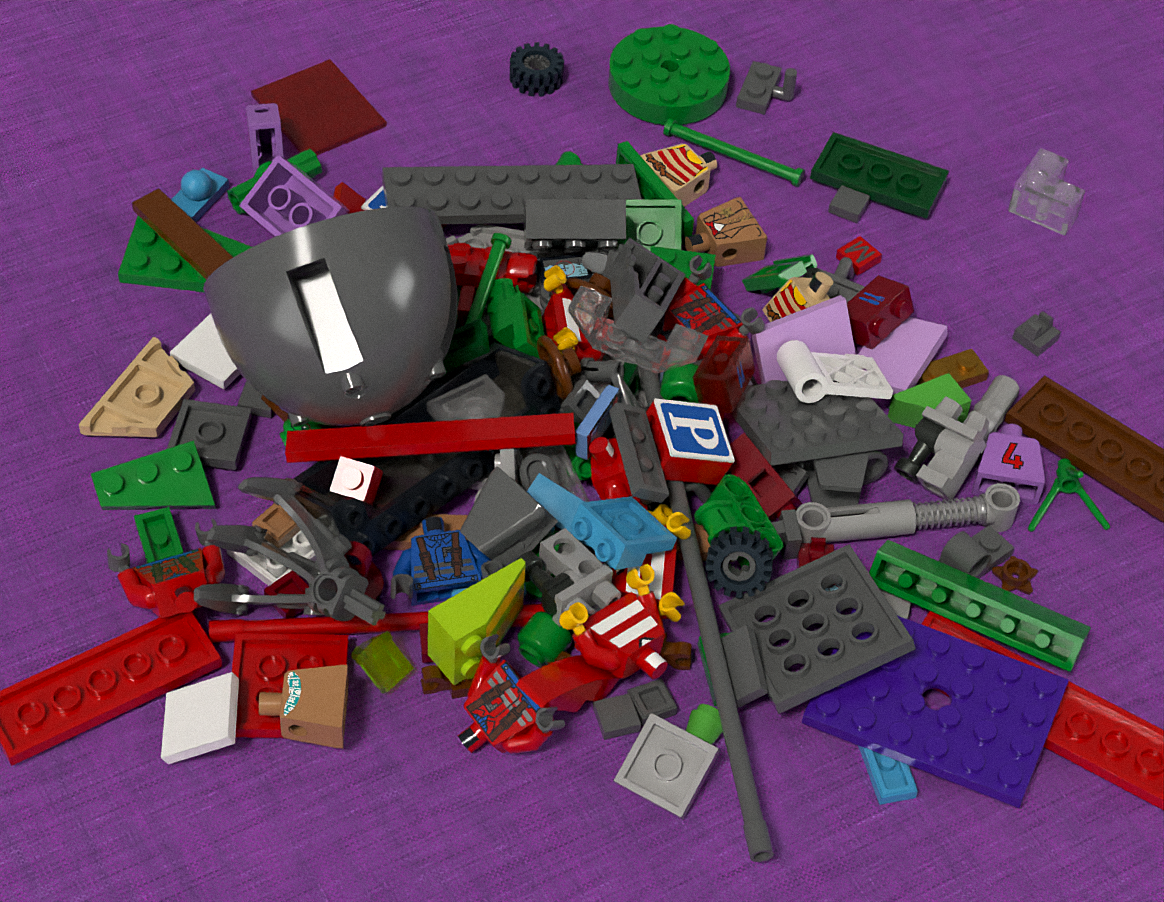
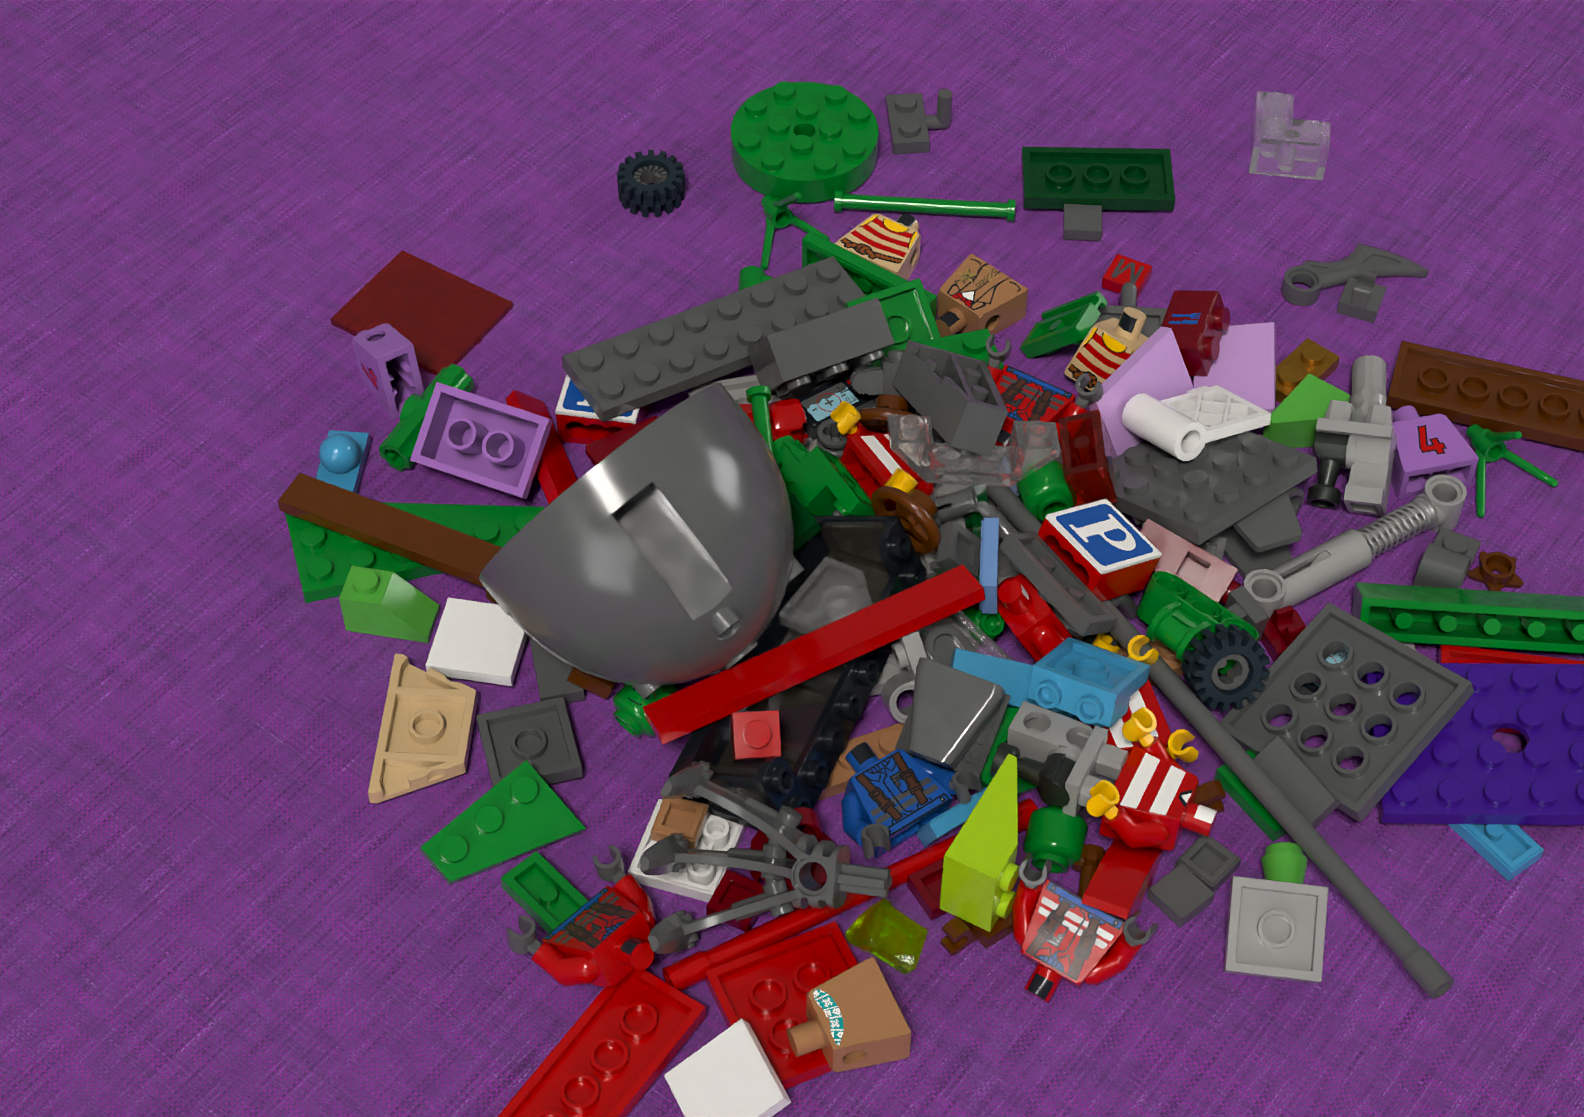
camera: 20 degrees left, 0 degrees up
(167, 301) = (386, 606): none -> bright green slope
(617, 124) = (780, 216): none -> green plant
(1059, 307) = (1334, 273): none -> dark grey piece

